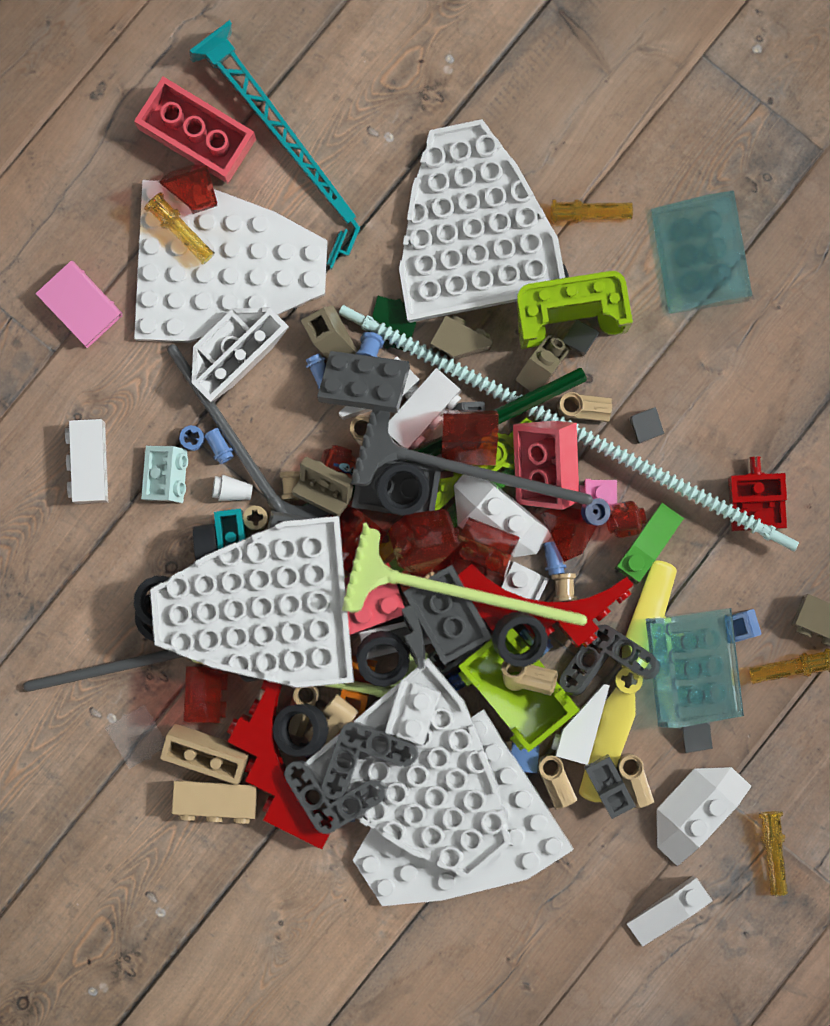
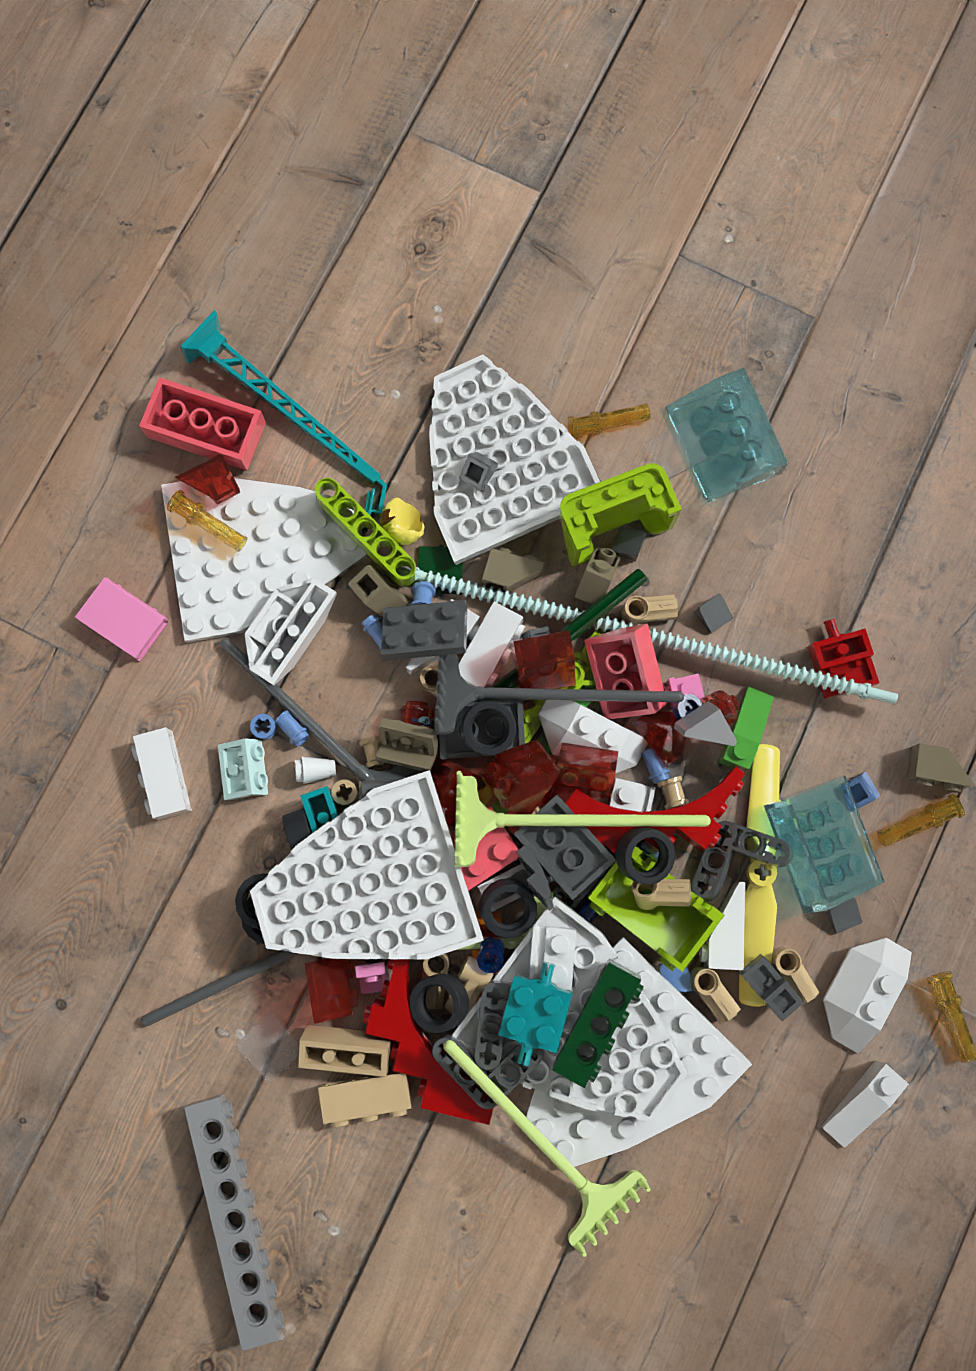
camera: 15 degrees left, 5 degrees down
(70, 978) = (251, 1328): none -> light grey brick
(244, 693) = (372, 976): none -> bright pink bracket
(325, 260) = (359, 520): none -> lime beam
(356, 705) = (489, 963): none -> clear blue bush
(366, 269) = (402, 522): none -> light yellow hair
(385, 757) = (535, 1013): none -> teal plate
(405, 941) = (598, 1200): none -> yellowish green piece
(406, 808) = (585, 1069): none -> dark green brick
(451, 235) = (478, 470): none -> dark grey slope
(607, 531) = (706, 724): none -> light grey slope
(649, 256) = (676, 449): none -> clear piece

